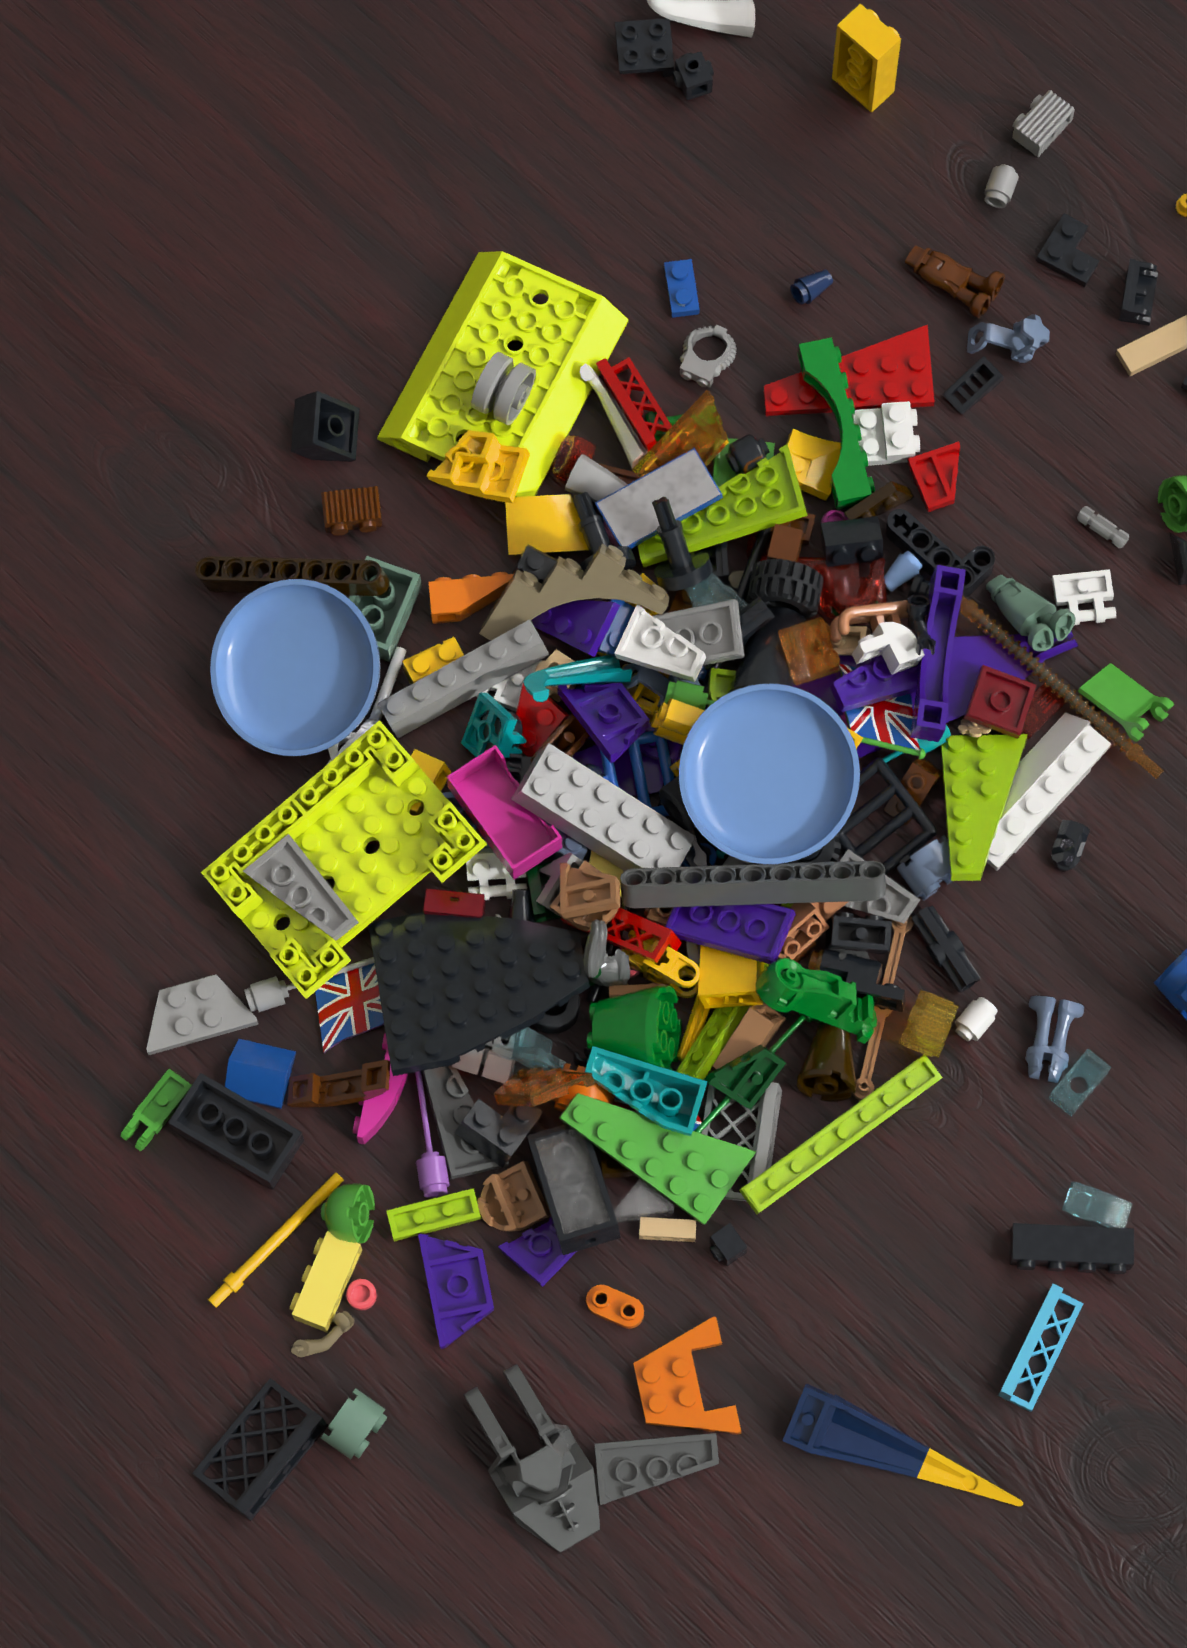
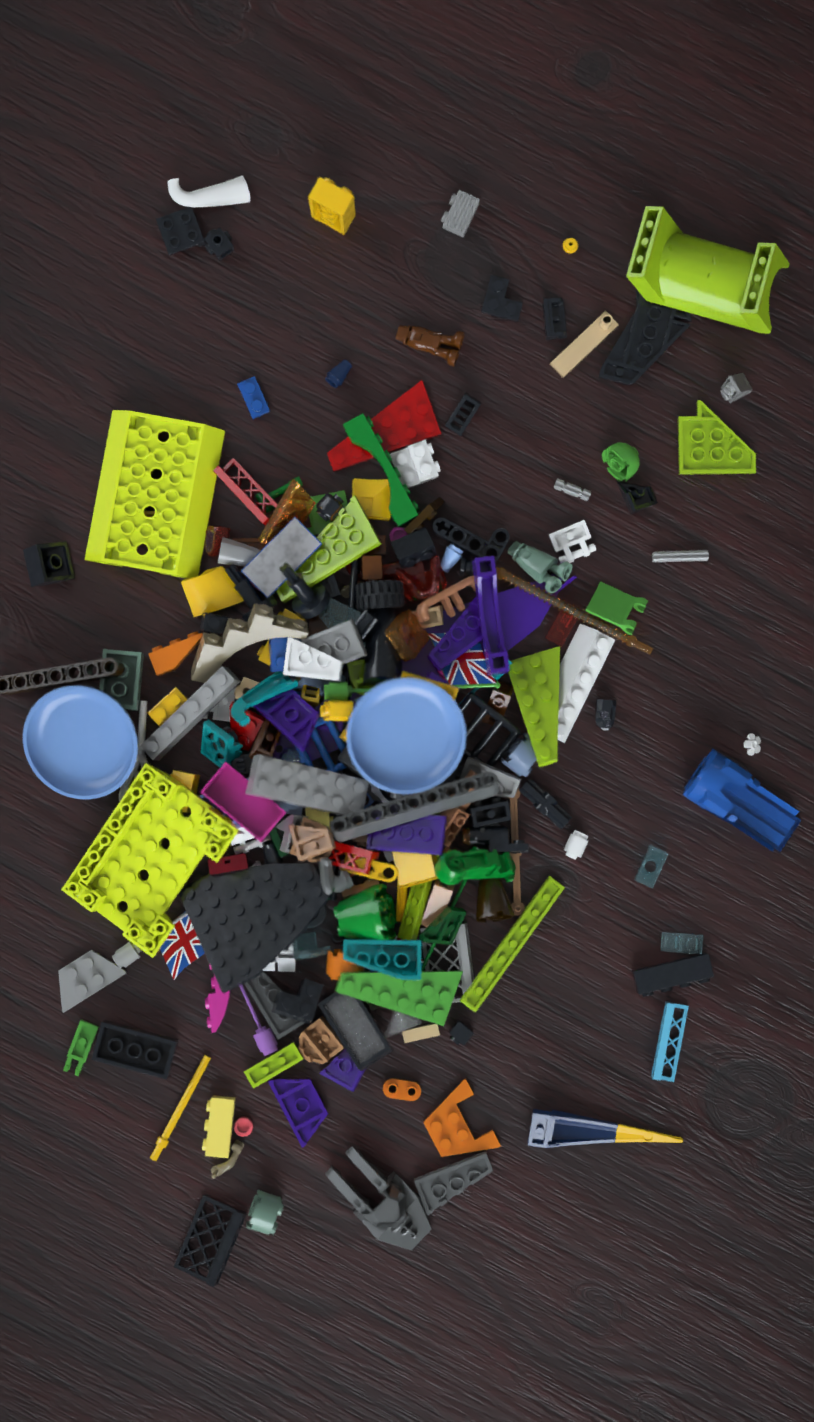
camera: 20 degrees left, 15 degrees up
(259, 1072) = (137, 1004): blue slope -> none
(298, 883) = (123, 881): light grey wing -> none
(339, 1088) = (190, 1003): reddish brown slope -> none
(348, 1212) = (221, 1082): bright green cylinder -> none
(351, 510) = (83, 615): reddish brown brick -> none
(482, 467) = (161, 568): yellow slope -> none
(503, 388) = (158, 513): light grey wheel -> none
(538, 1086) = (316, 974): clear orange wing -> none
(579, 623) = (256, 658): dark purple wing -> none
(629, 440) = (254, 523): white animal -> none
(702, 370) = (285, 455): light grey piece -> none
(894, 643) = (462, 617): white brick -> none
(917, 609) = (469, 588): black brick -> none
(929, 1024) = (548, 859): clear yellow brick -> none
(936, 475) = (456, 484): red wing -> none
(972, 728) = (525, 650): tan plant -> none
(1000, 186) = (444, 266): light grey brick -> none
(1000, 701) = (537, 630): dark red tile -> none
(1022, 340) = (487, 374): sand blue piece -> none
(1041, 1050) = (619, 856): sand blue piece -> none

